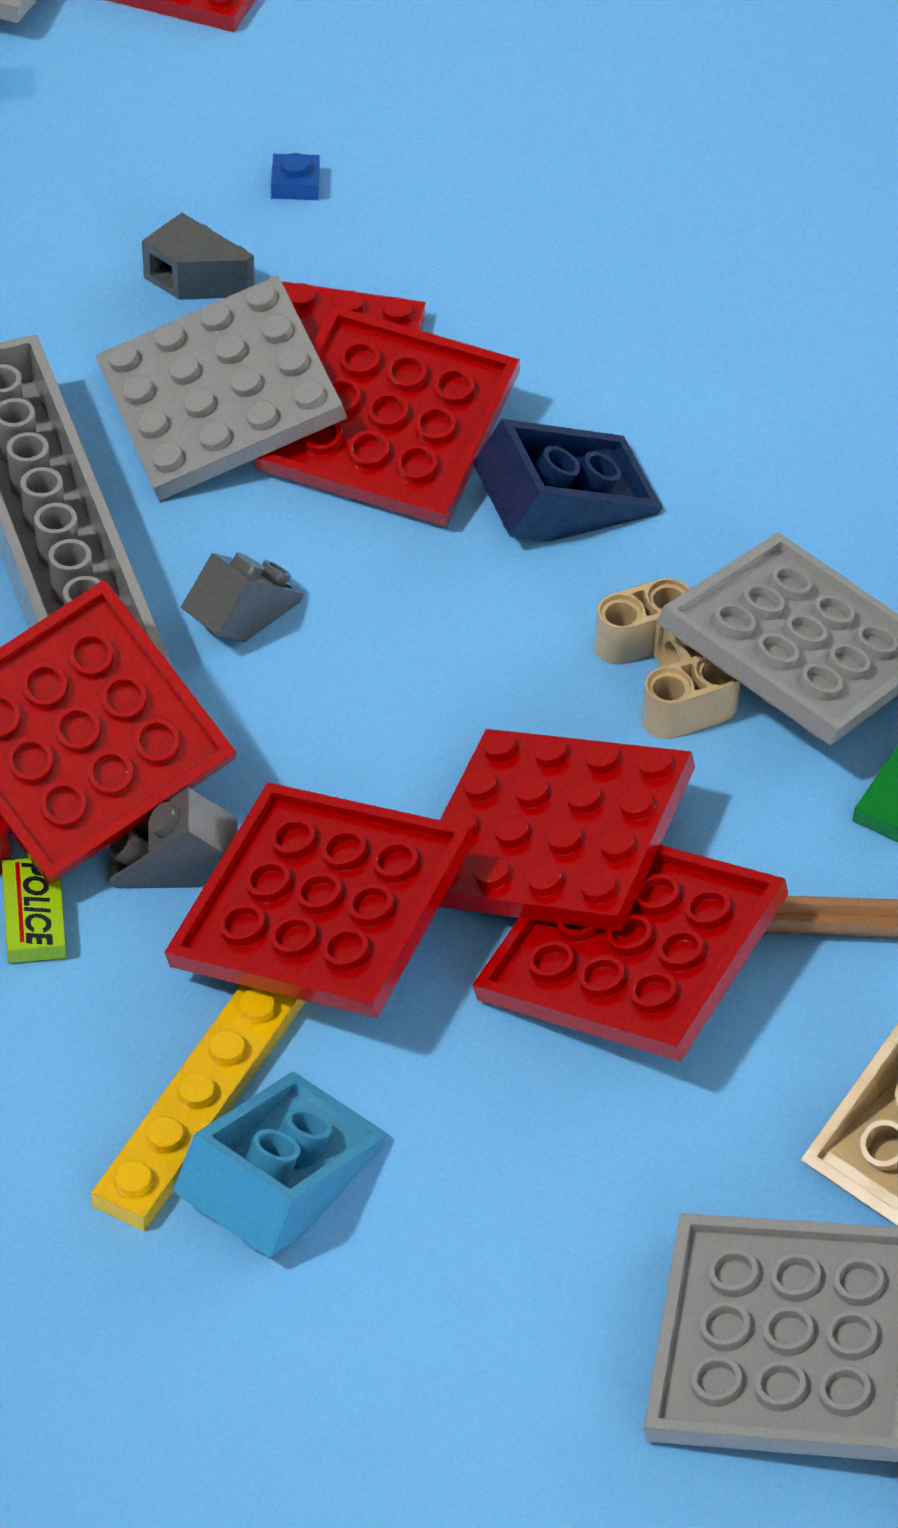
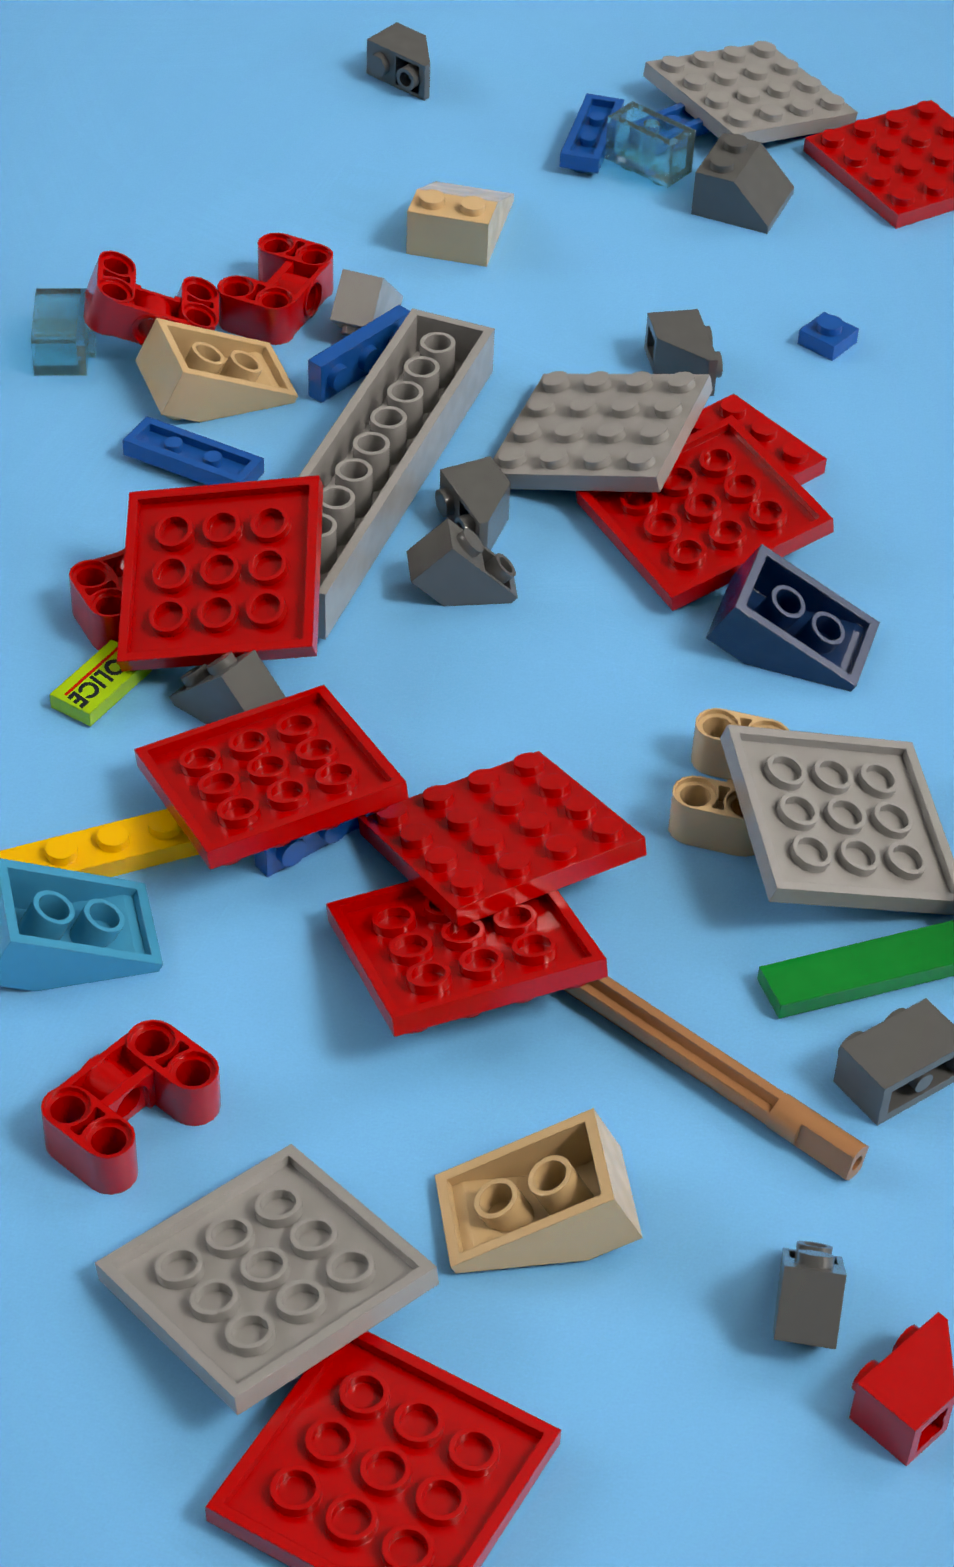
camera: 40 degrees right, 5 degrees down
(66, 59) = (740, 185): none -> dark grey slope
(179, 520) = (475, 498): none -> dark grey slope
(489, 1275) = (90, 1111): none -> red beam

